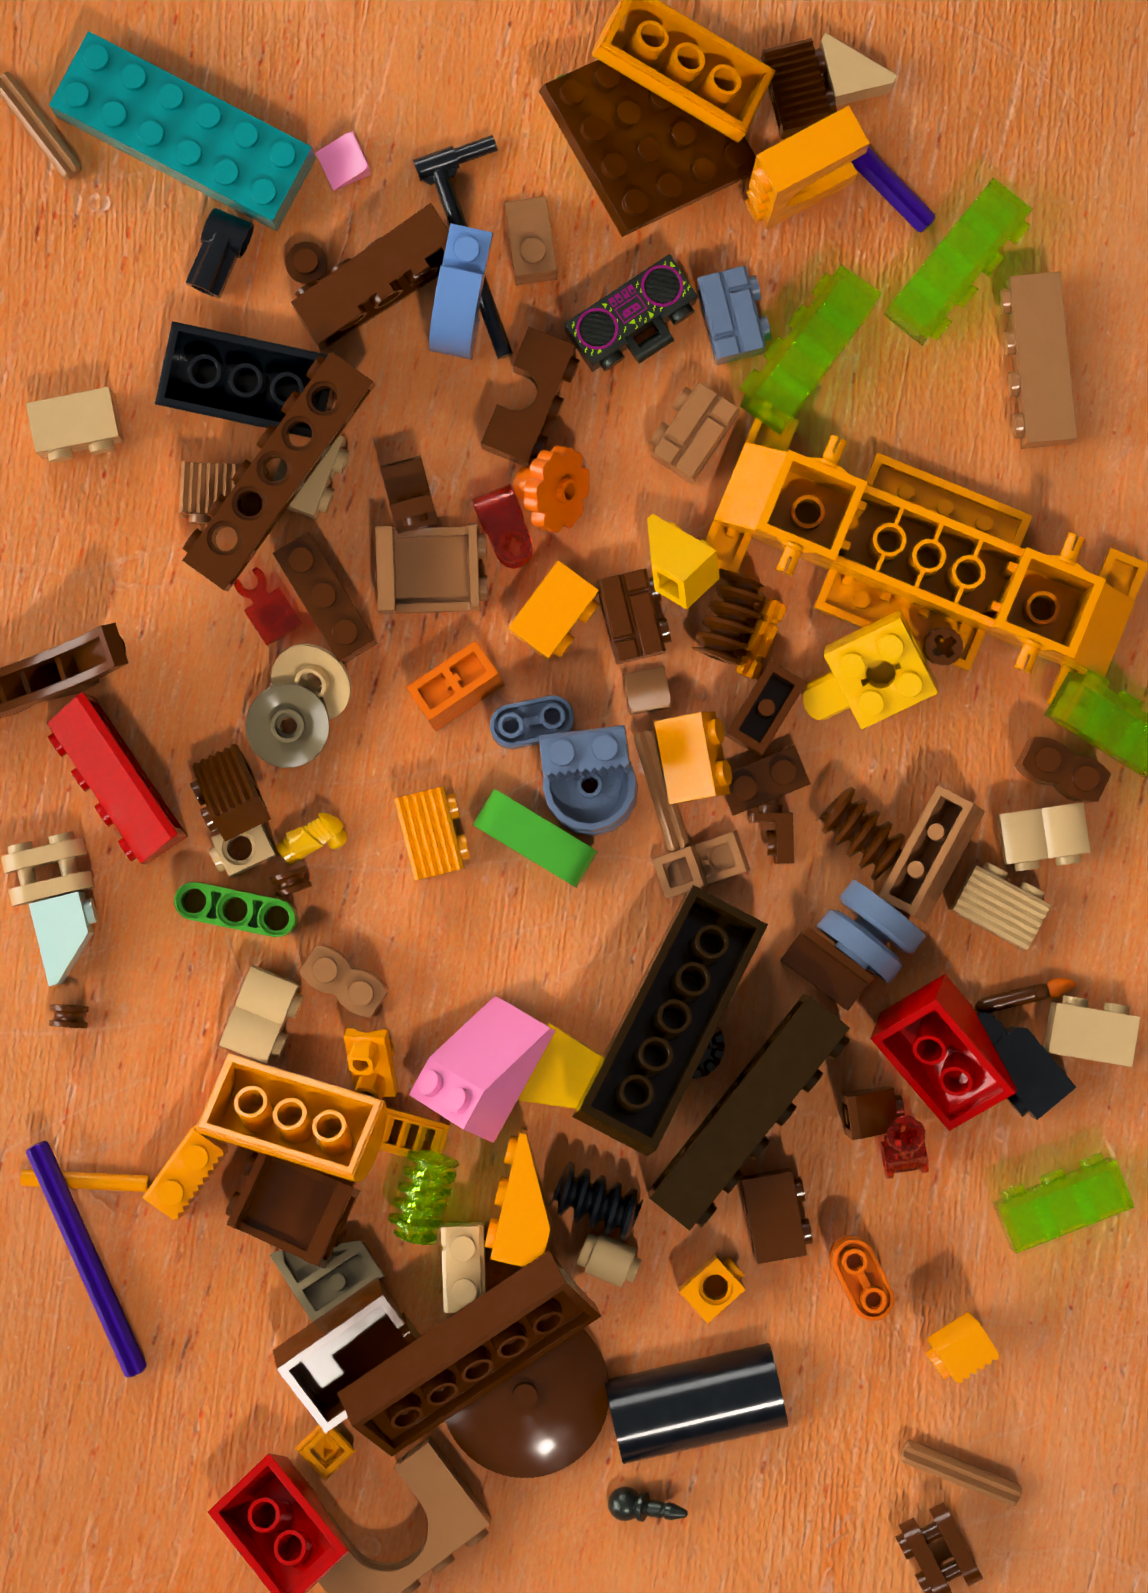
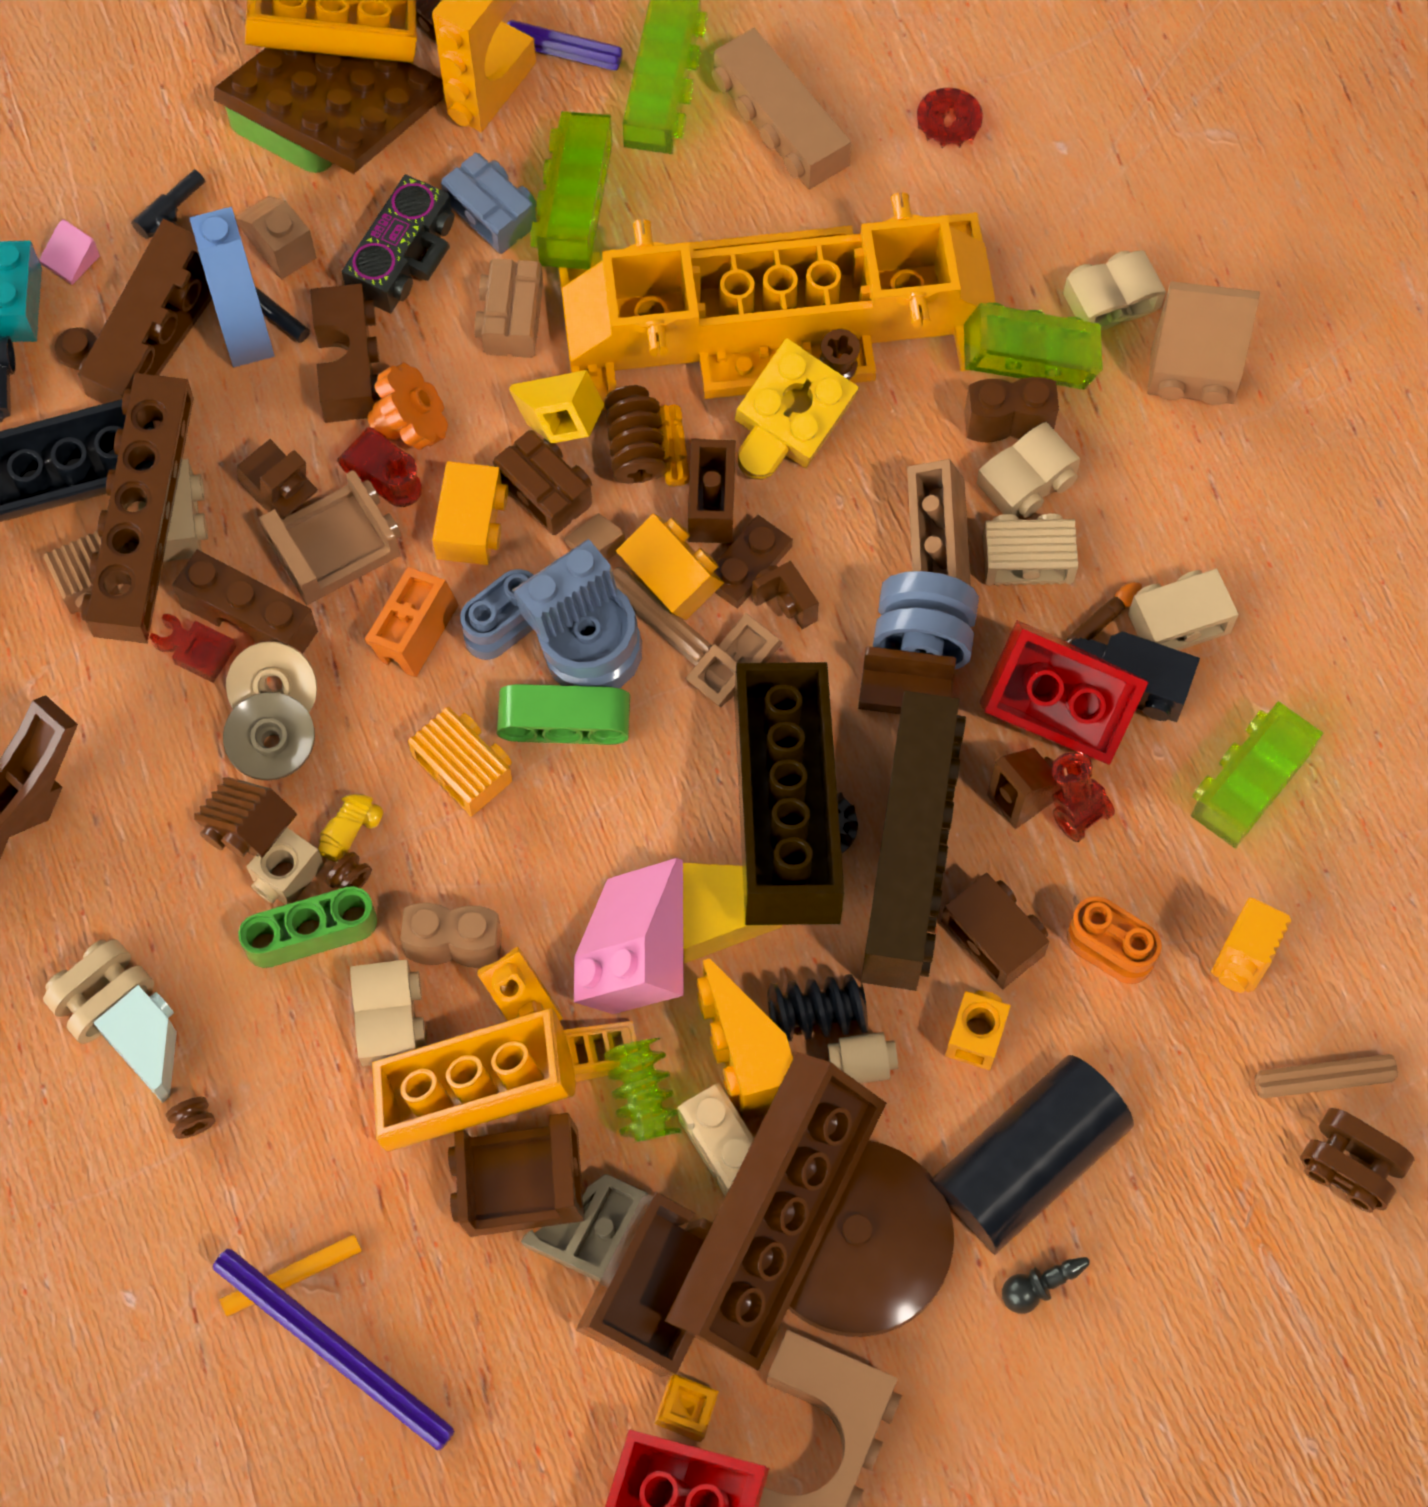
camera: 25 degrees left, 20 degrees down
(115, 778) = (123, 864): slope -> none
(185, 1173) = (390, 1203): light orange brick -> none
(862, 832) = (863, 551): reddish brown piece -> none

